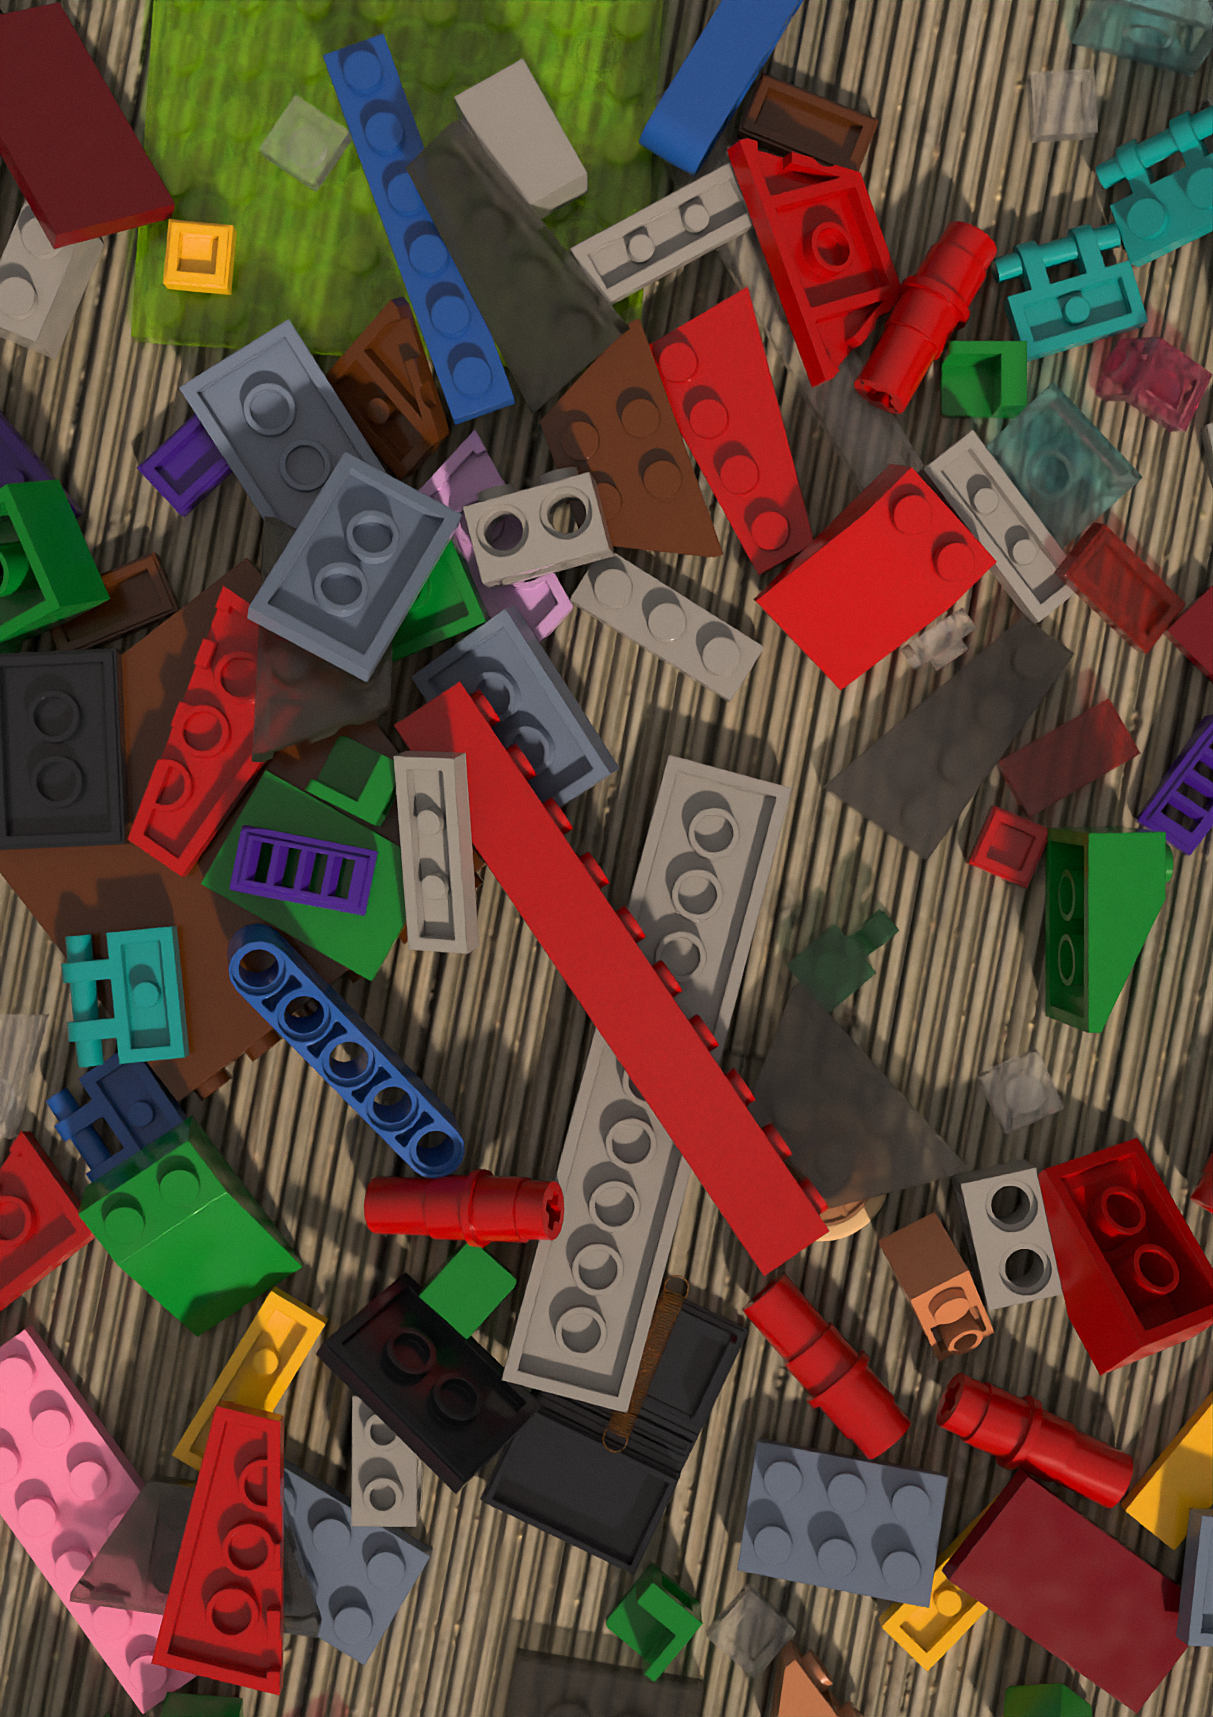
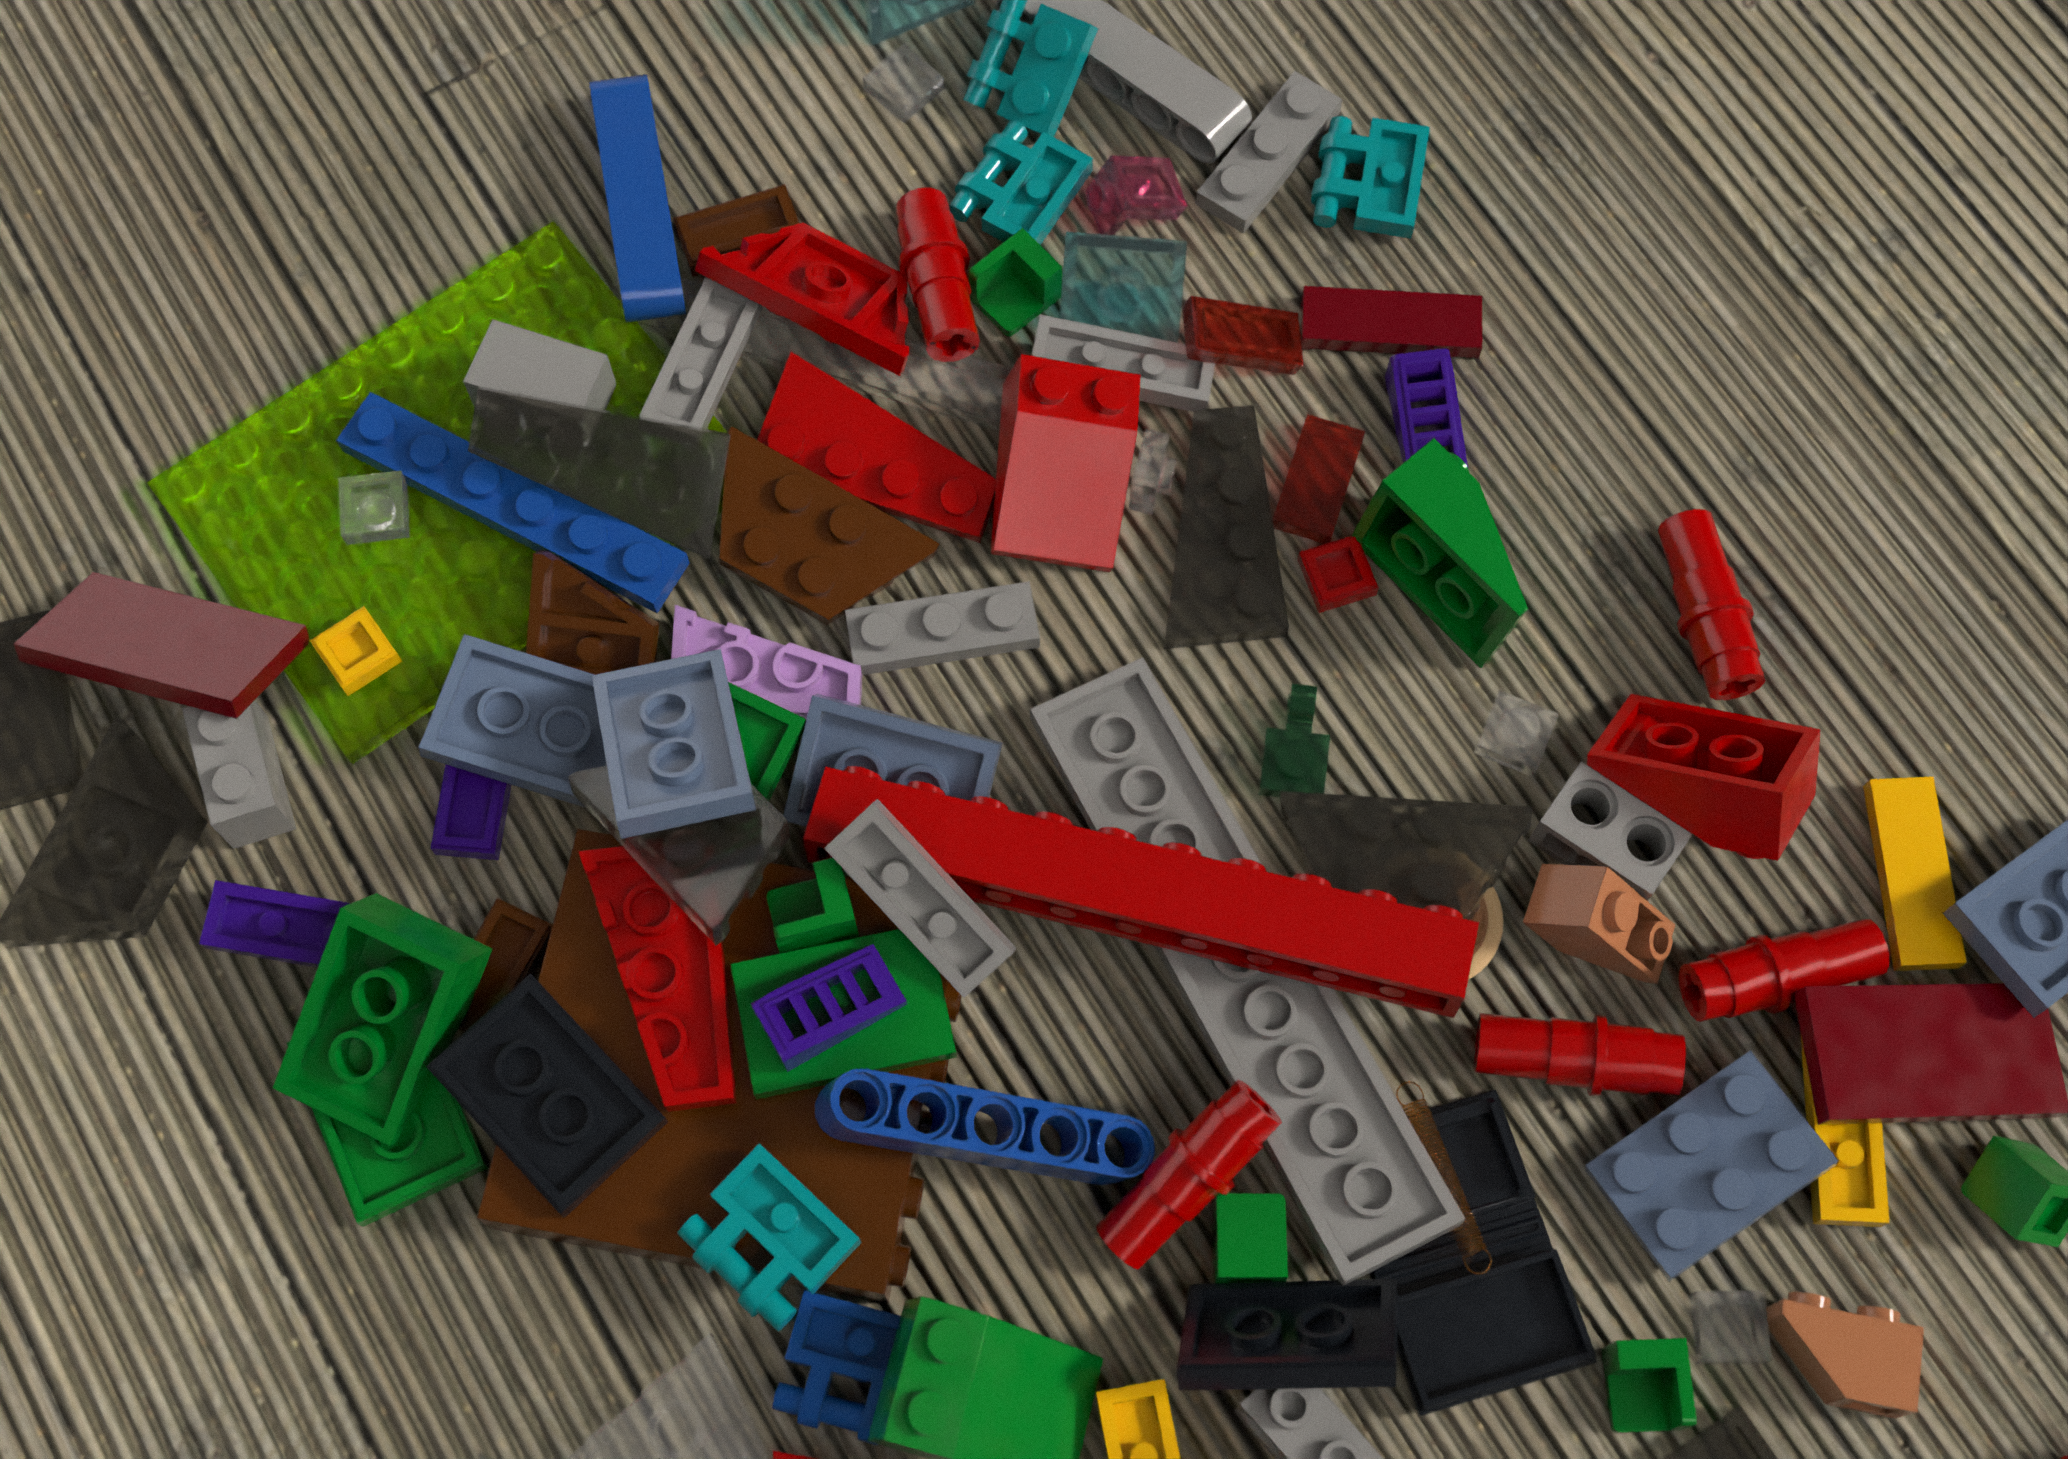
camera: 45 degrees left, 20 degrees down
(541, 546) = (803, 629): light grey brick -> none

